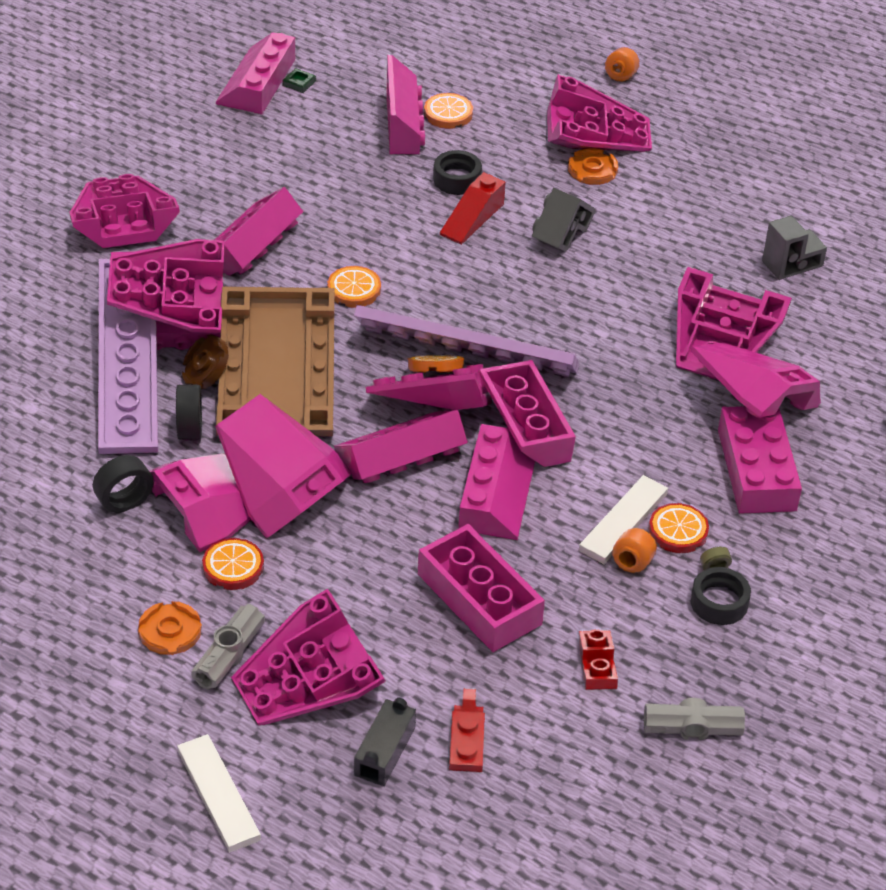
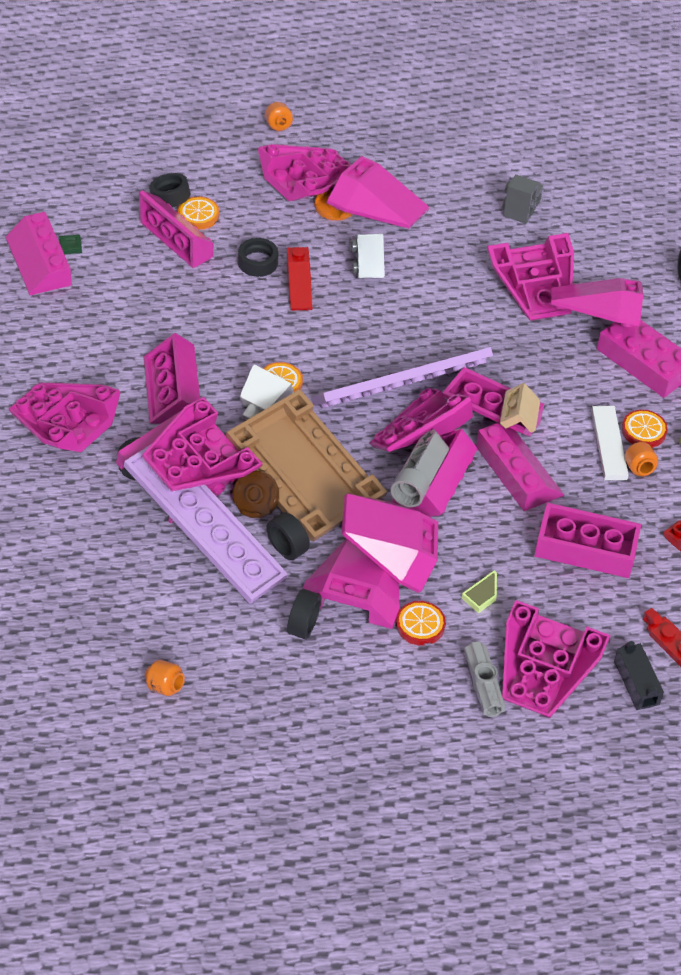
camera: 40 degrees left, 5 degrees up
(164, 635) = (434, 698): orange tile -> none
(219, 793) = (577, 776): white tile -> none
(319, 273) = (263, 391): none -> white torso
(326, 574) = (482, 593): none -> tile
(342, 425) = (419, 470): none -> light grey beam
(439, 76) = (170, 181): none -> black tyre
(439, 363) = (398, 404): orange tile -> none
(539, 424) = (520, 406): none -> tan panel
(637, 172) = (376, 194): none -> dark pink wedge

